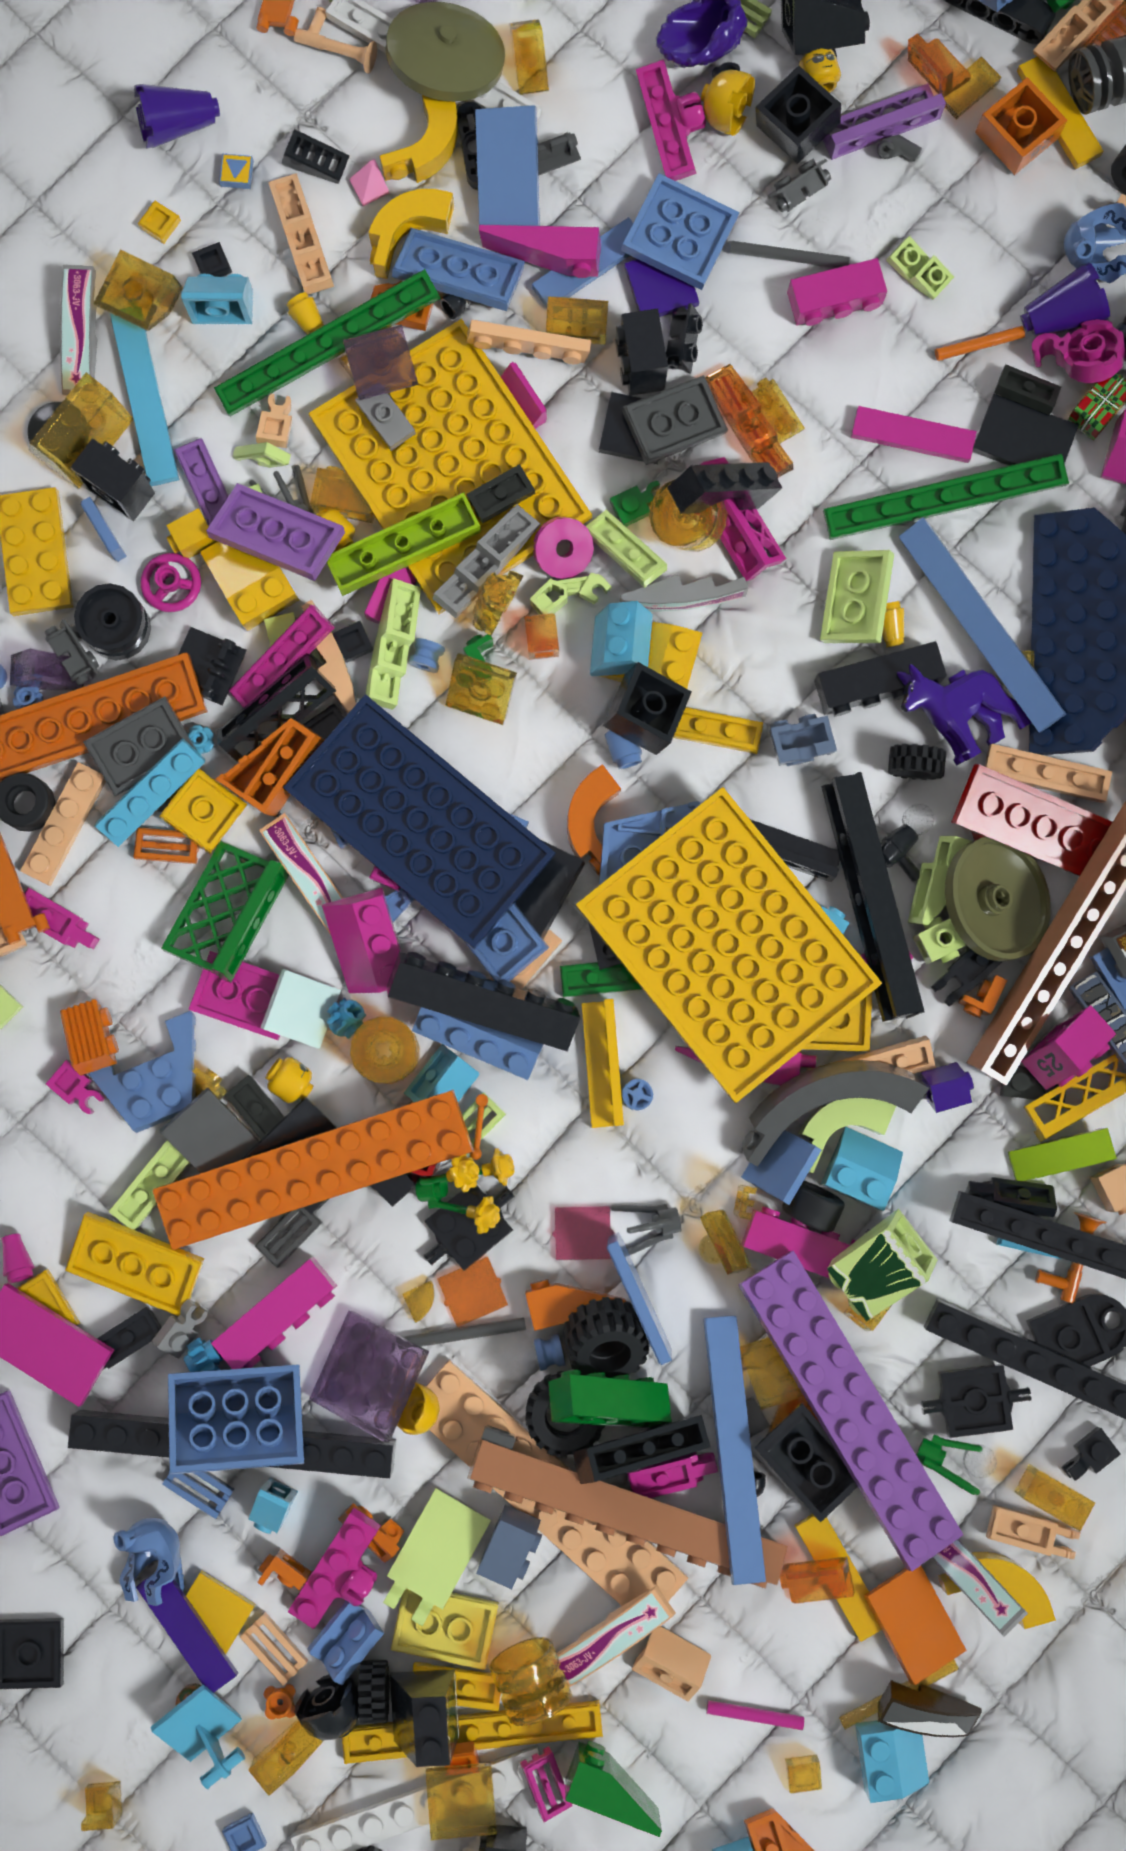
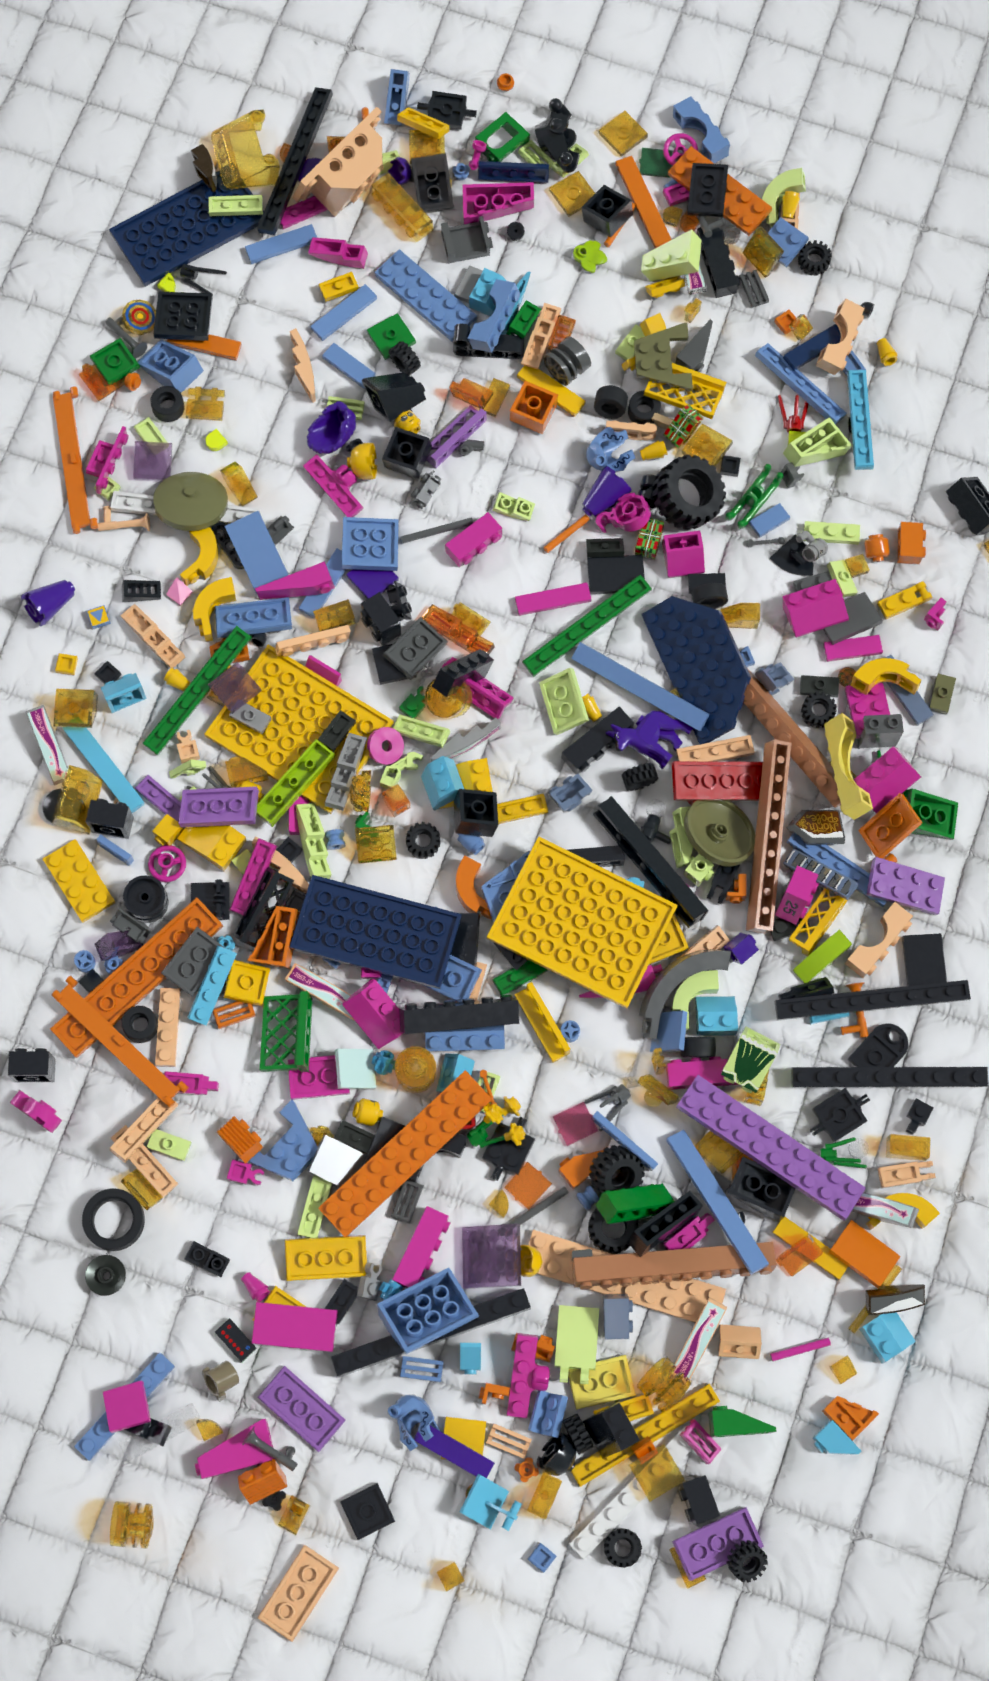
camera: 25 degrees left, 10 degrees down
(554, 695) = (426, 829): none -> black tyre

